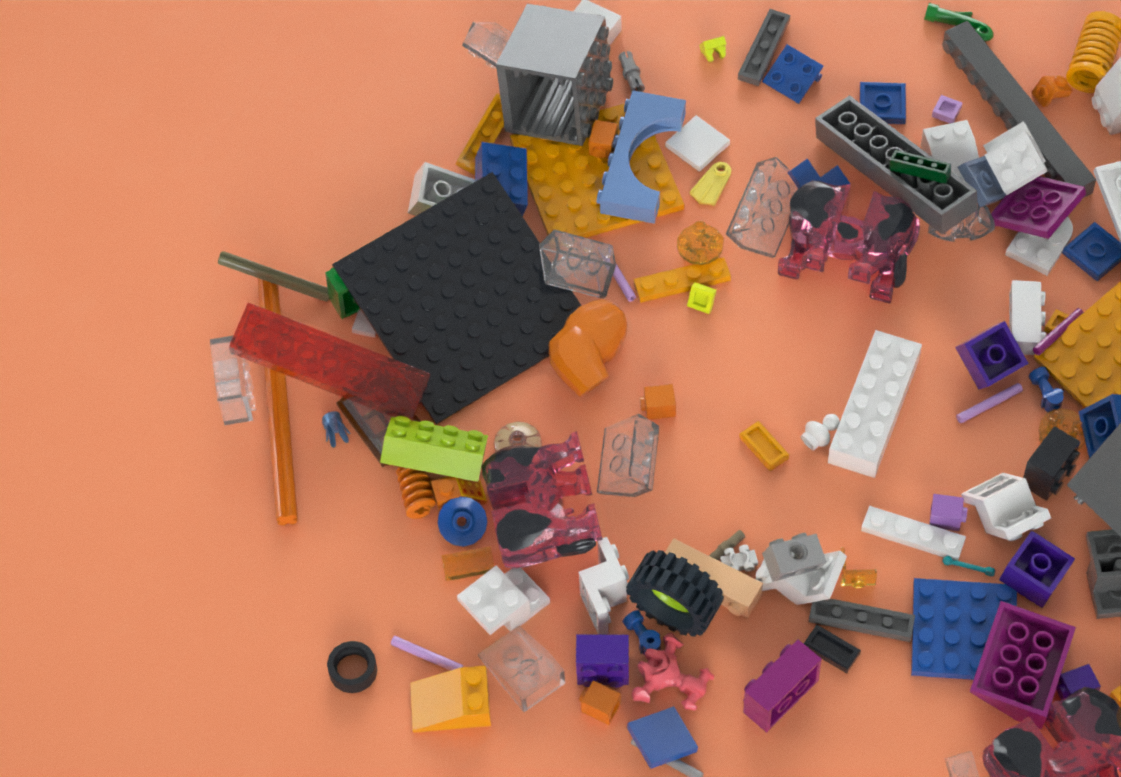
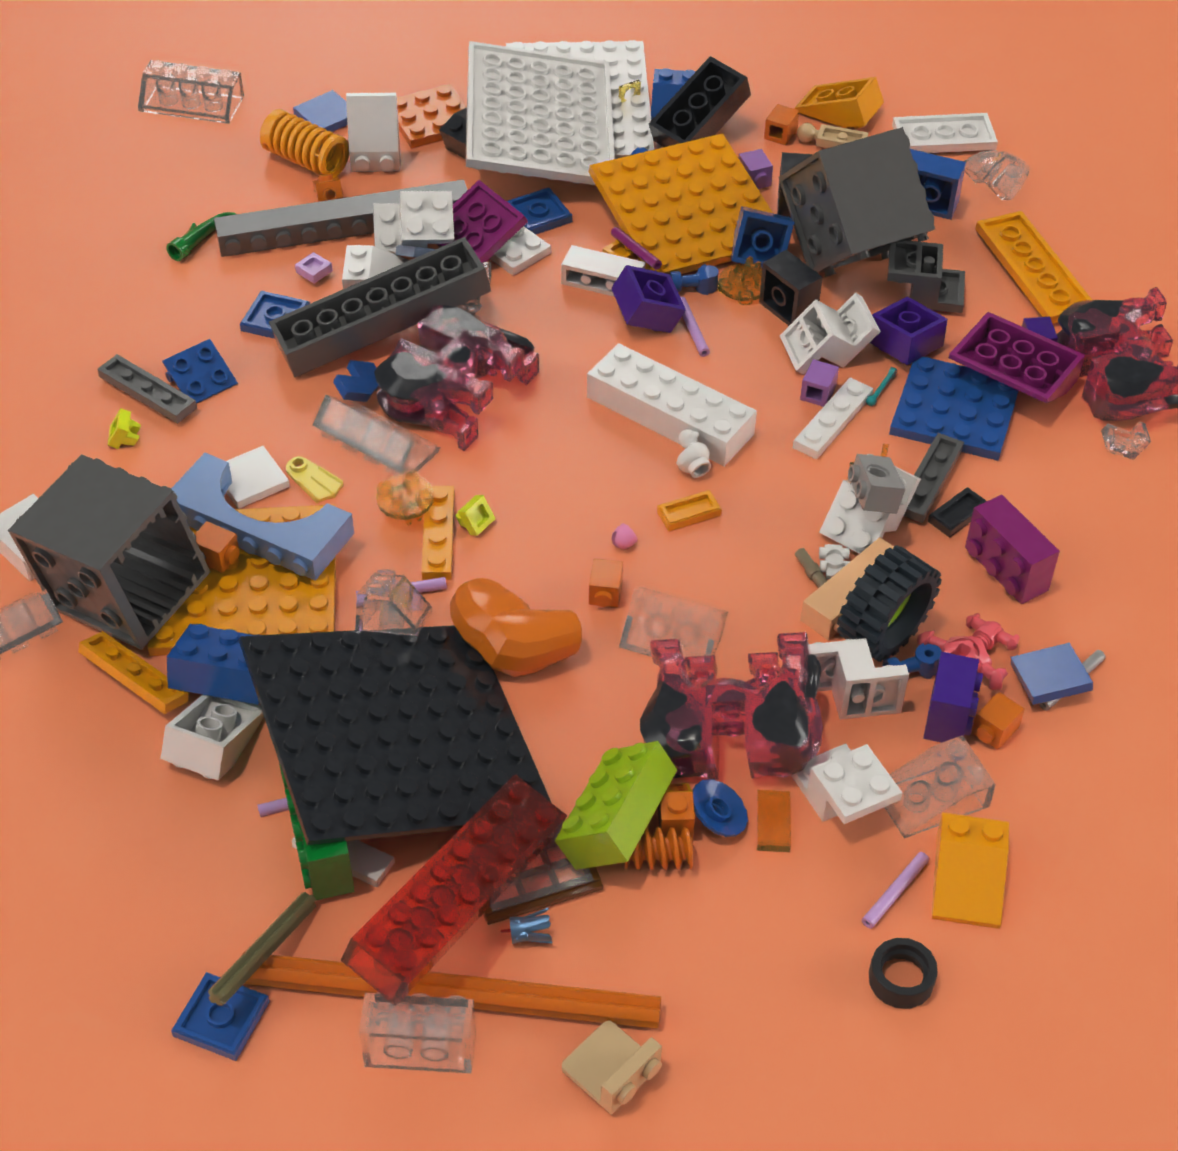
camera: 80 degrees left, 10 degrees down
(230, 282) = (223, 1027): none -> blue tile
(240, 500) = (612, 1065): none -> tan bracket
(506, 434) = (597, 740): tan dish -> none
(715, 404) = (623, 537): none -> bright pink hinge
(920, 166) = (412, 271): dark green piece -> none

